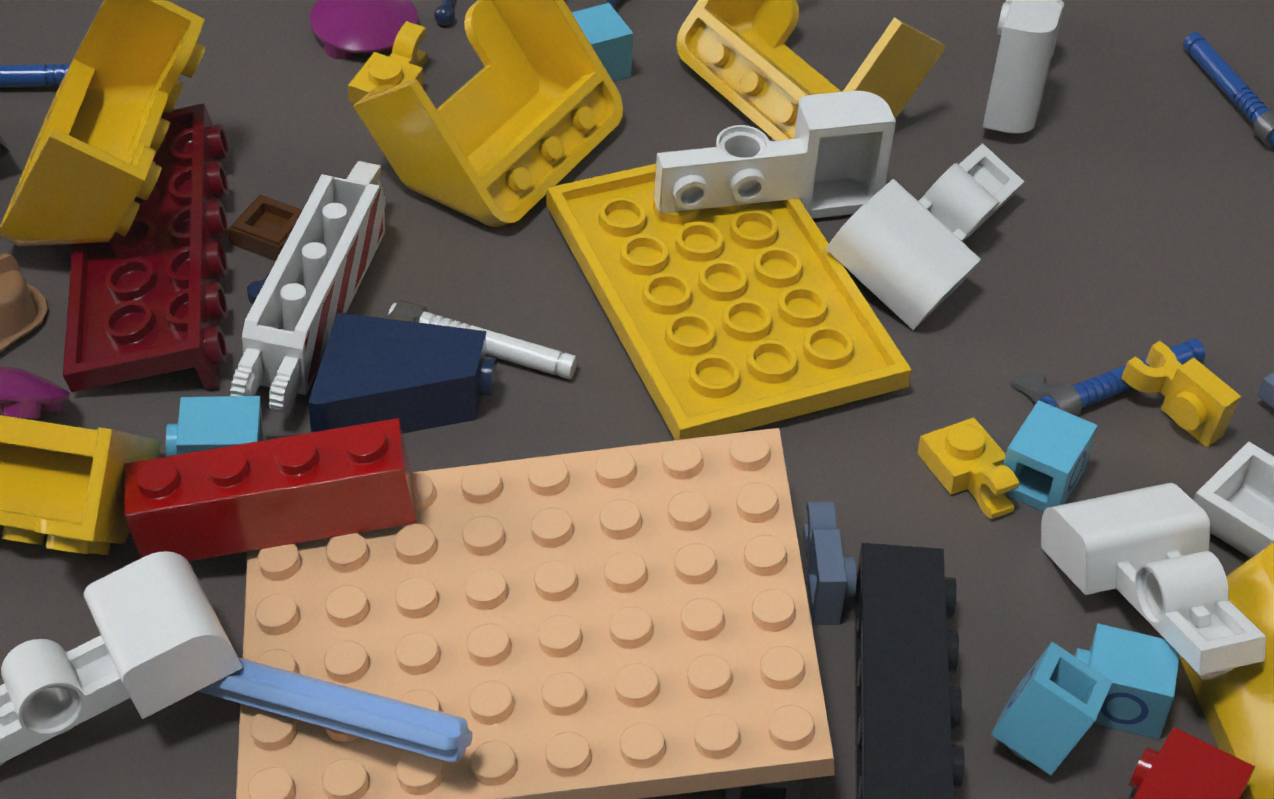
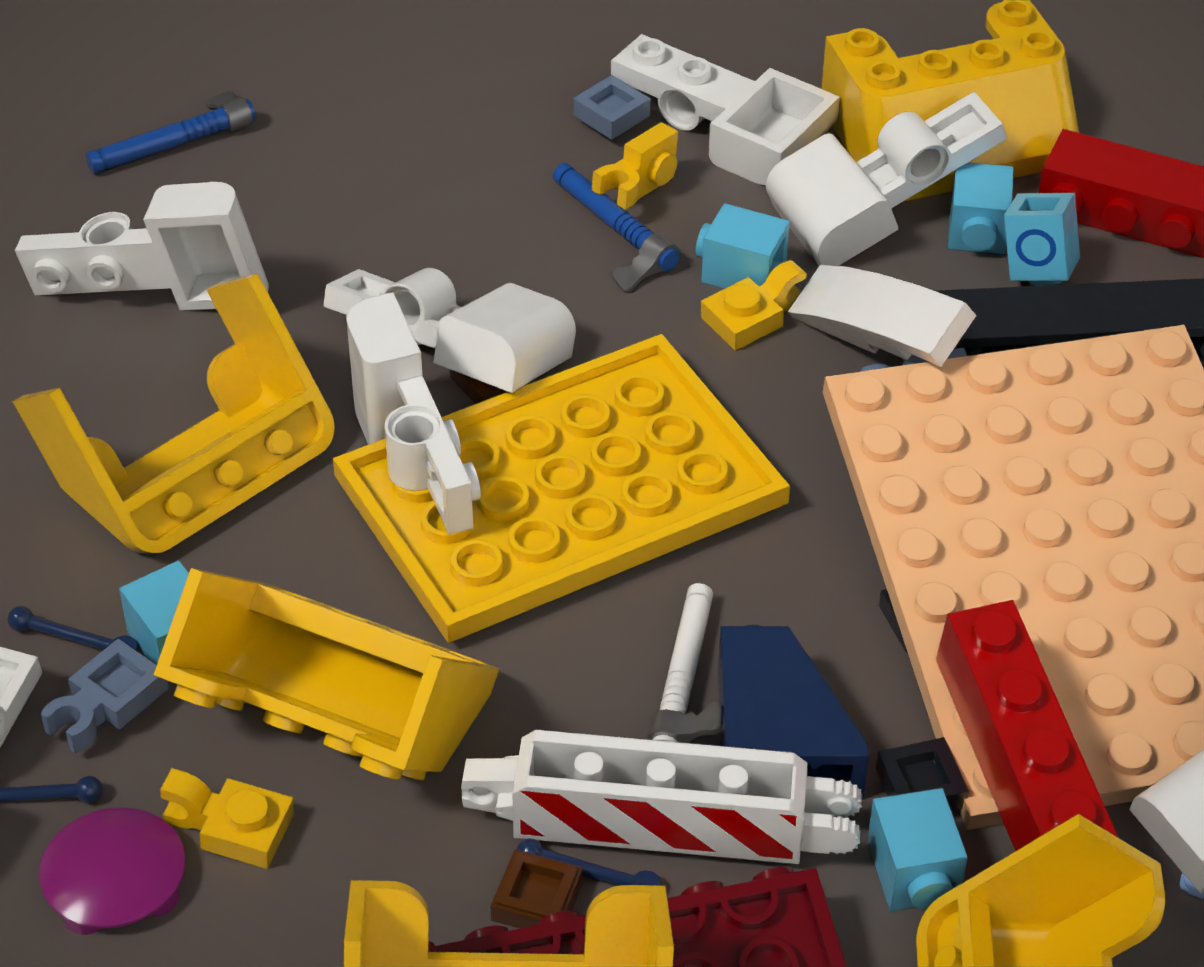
camera: 95 degrees left, 0 degrees up
(888, 505) = (882, 313): none -> white slope

